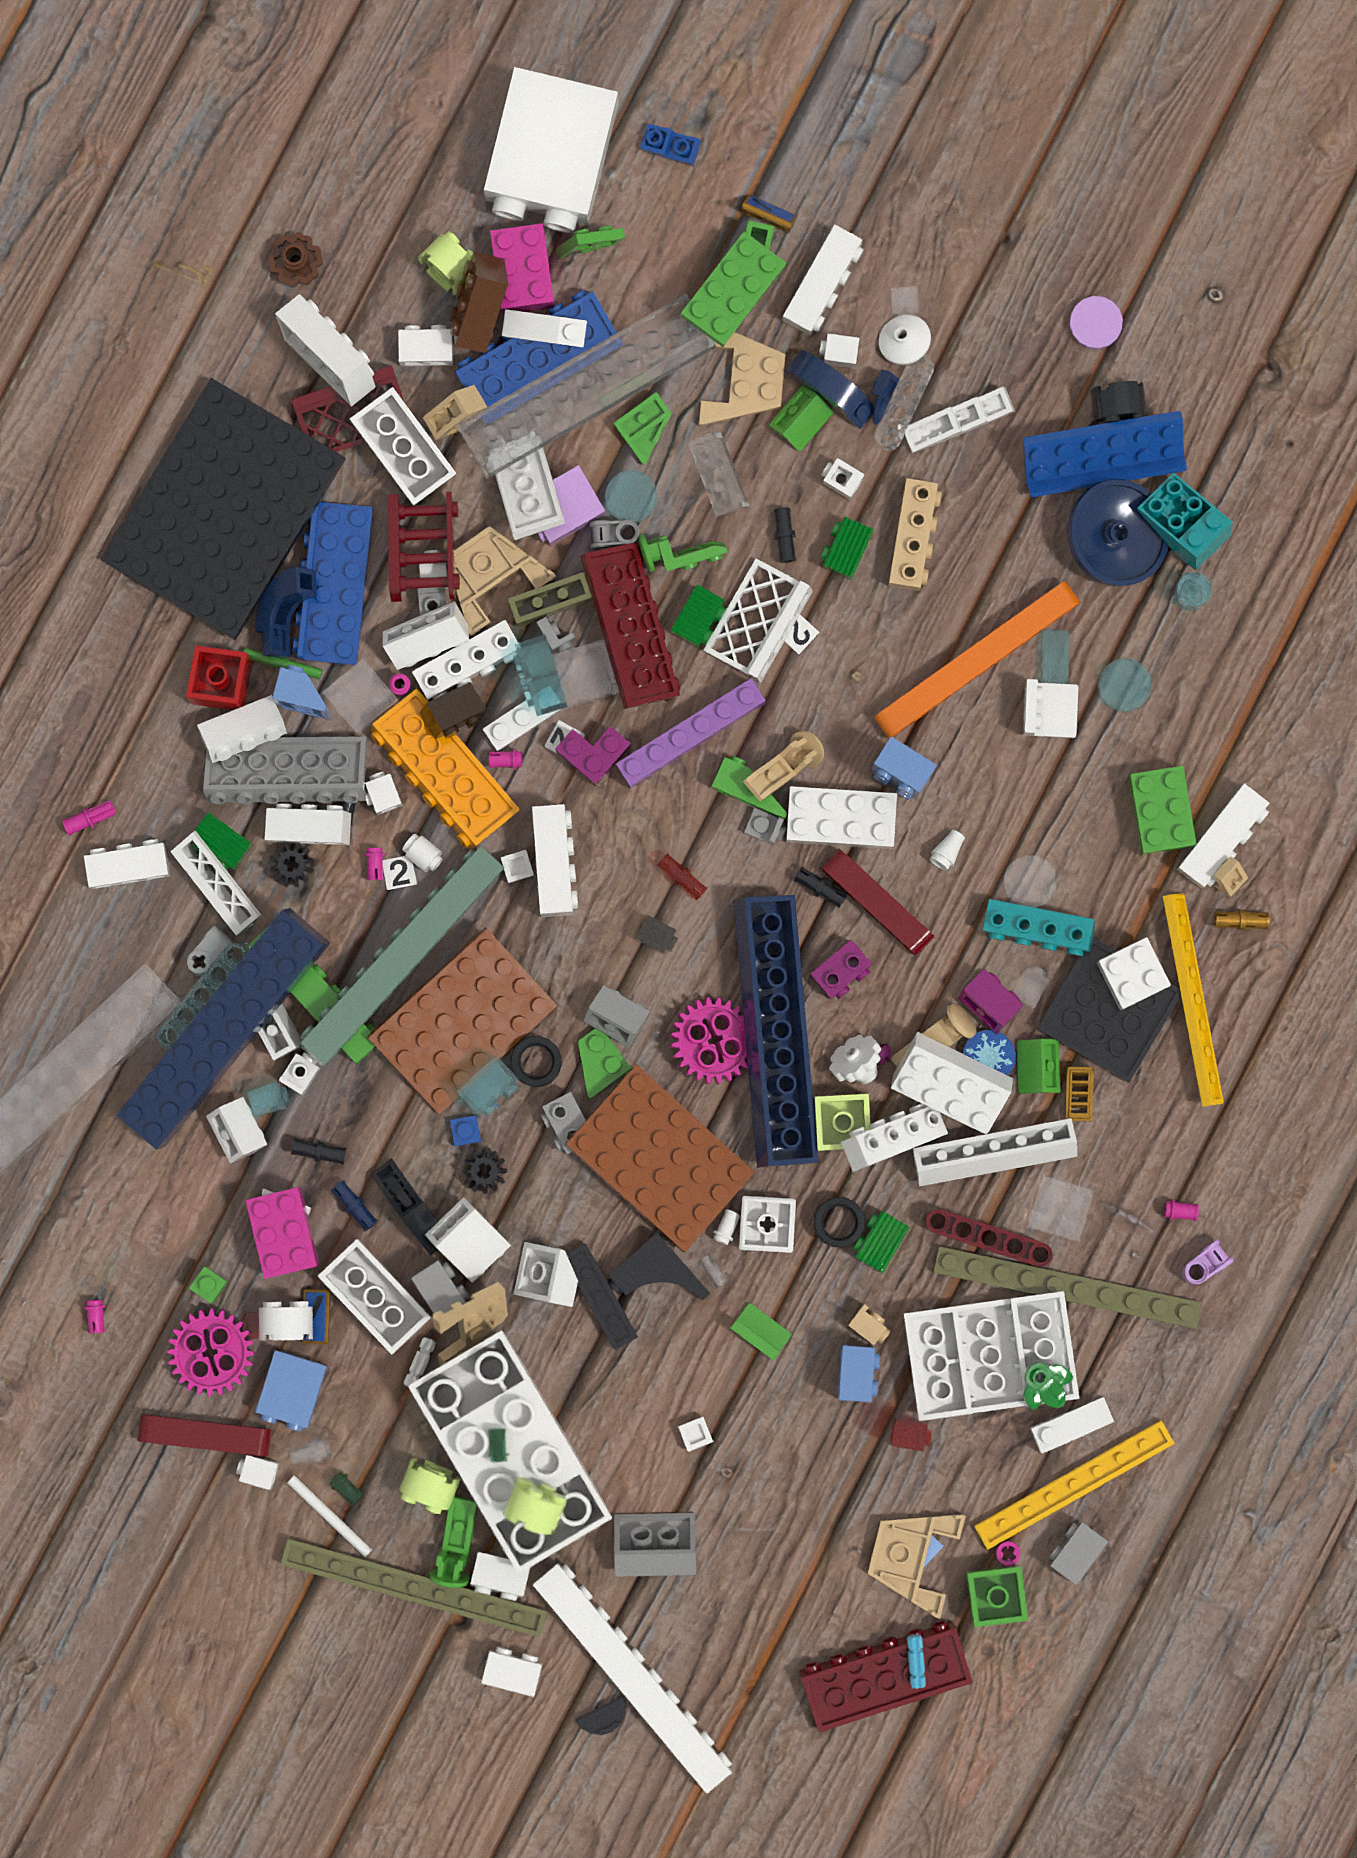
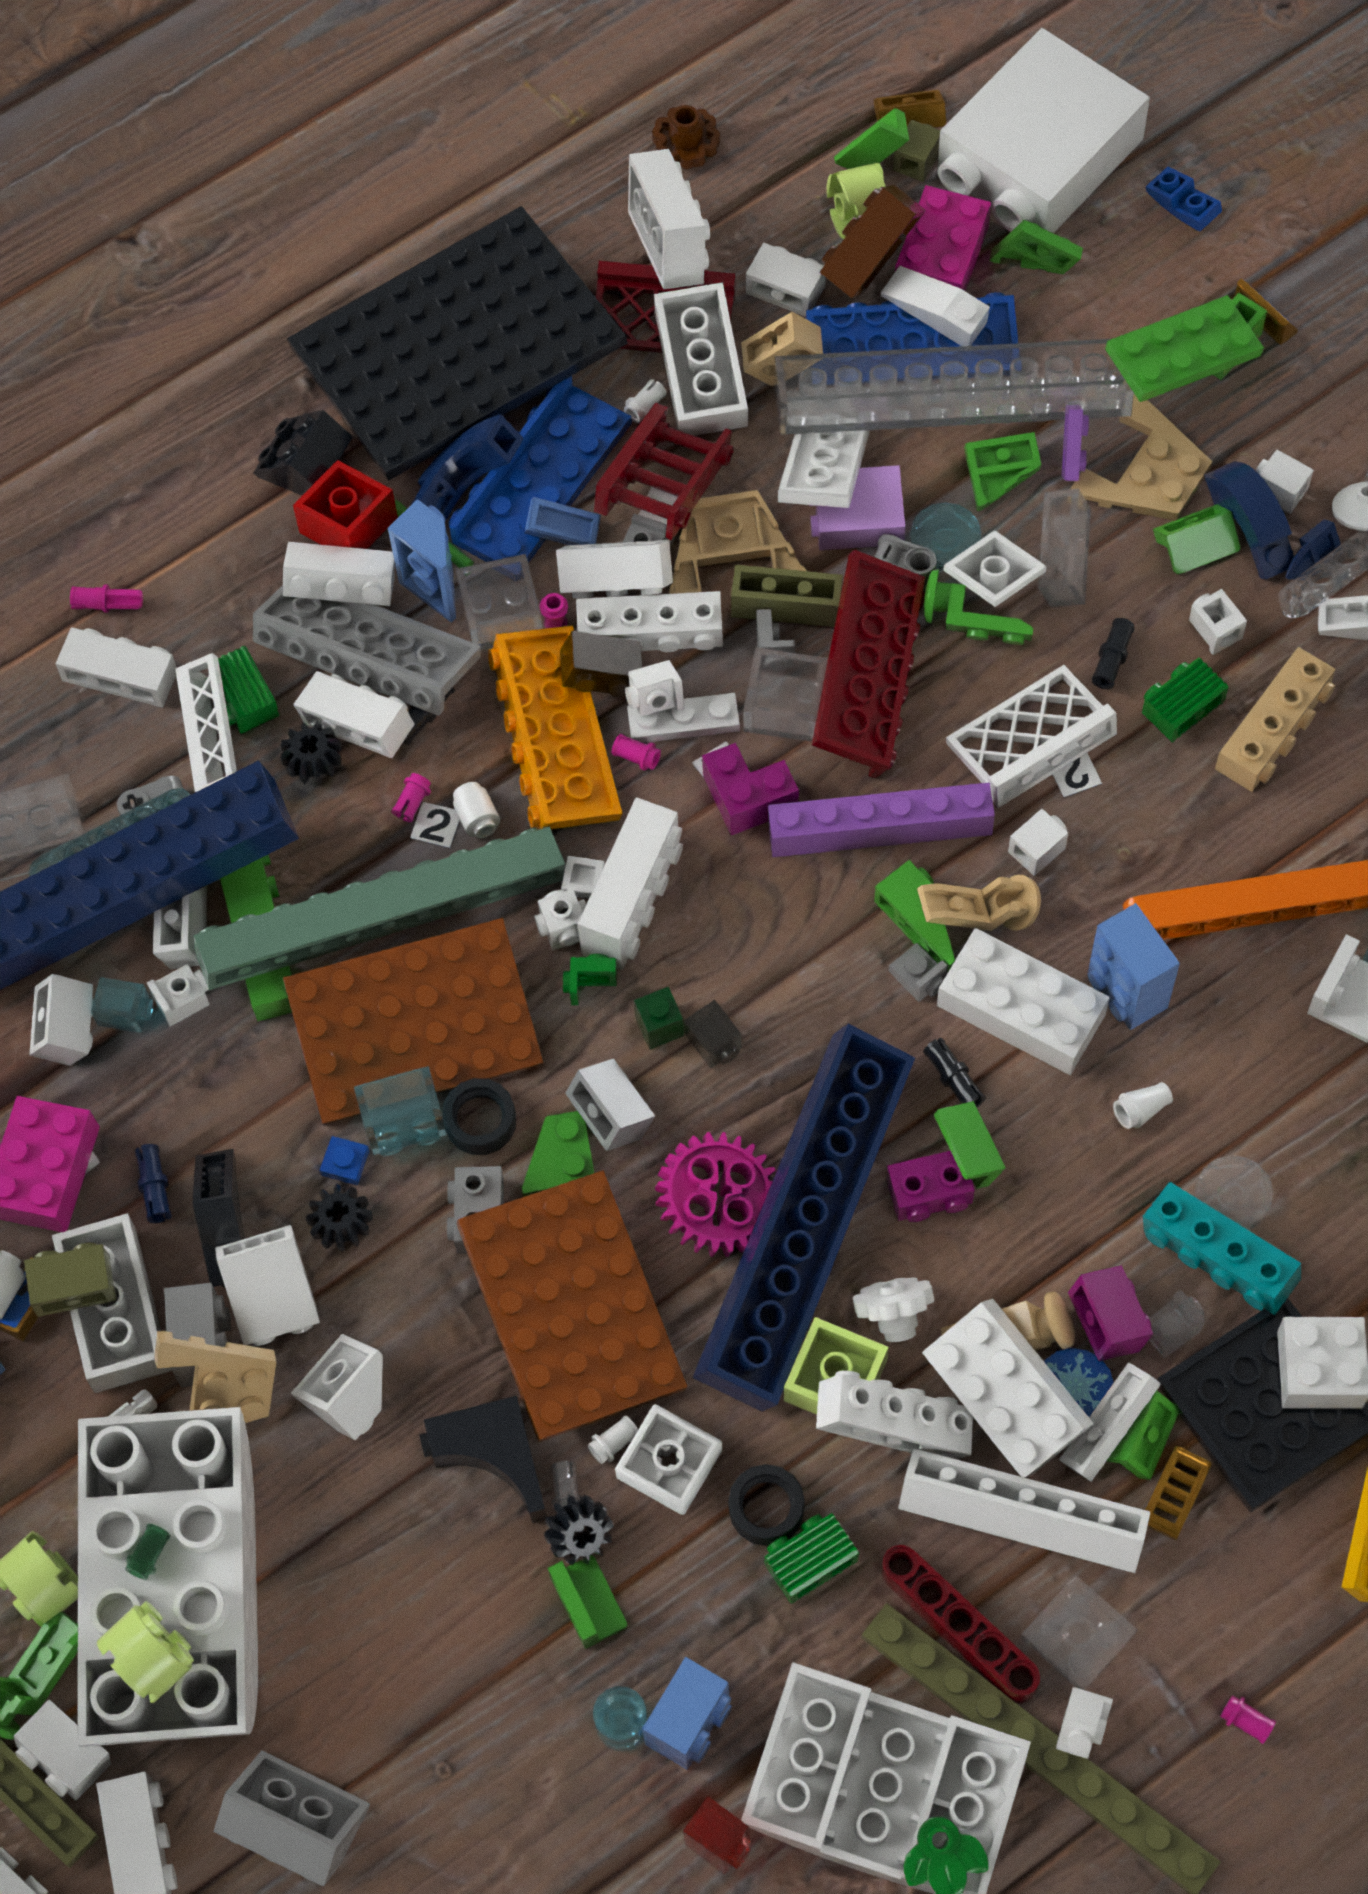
camera: 30 degrees right, 20 degrees down
(162, 644) = (302, 451): none -> black slope
(318, 1151) = (147, 1096): black pin -> none
(349, 1300) = (69, 1279): none -> olive brick
(370, 615) = (561, 523): none -> medium blue tile
(375, 490) = (640, 405): none -> white pin
(382, 793) = (465, 723): white brick -> none
(436, 207) = (876, 142): none -> bright green panel
(442, 159) = (922, 107): none -> pearl gold slope
(465, 194) = (919, 153): none -> olive brick
(498, 713) = (655, 689): none -> white brick
(524, 913) = (559, 918): none -> white brick
(539, 675) = (726, 663): clear light blue piece -> none
(558, 927) = (589, 971): none -> green bracket
(601, 1297) = (400, 1450): black plate -> none
(616, 941) = (659, 1018): none -> dark green brick
(682, 519) = (994, 568): none -> white slope
(682, 876) = (782, 982): clear red pin -> none
(691, 399) = (1075, 427): none -> medium lavender plate
(695, 1434) = (427, 1693): white plate -> none
(698, 616) = (958, 695): green brick -> none
(736, 1295) = (578, 1529): none -> black gear
(799, 698) = (1038, 841): none -> white brick
(818, 1394) = (620, 1718): none -> clear light blue wheel
(822, 280) = (1297, 402): white brick -> none
(853, 932) = (970, 1143): none -> bright green panel
(869, 1326) = (737, 1661): tan brick -> none
(877, 902) = (1019, 1126): dark red beam -> none
(885, 1054) = (933, 1316): magenta hinge -> none
(1022, 1069) = (1111, 1421): none -> white plate
(1088, 1262) = (1083, 1722): none -> white brick
(1207, 1262) = (1259, 1807): lavender piece -> none

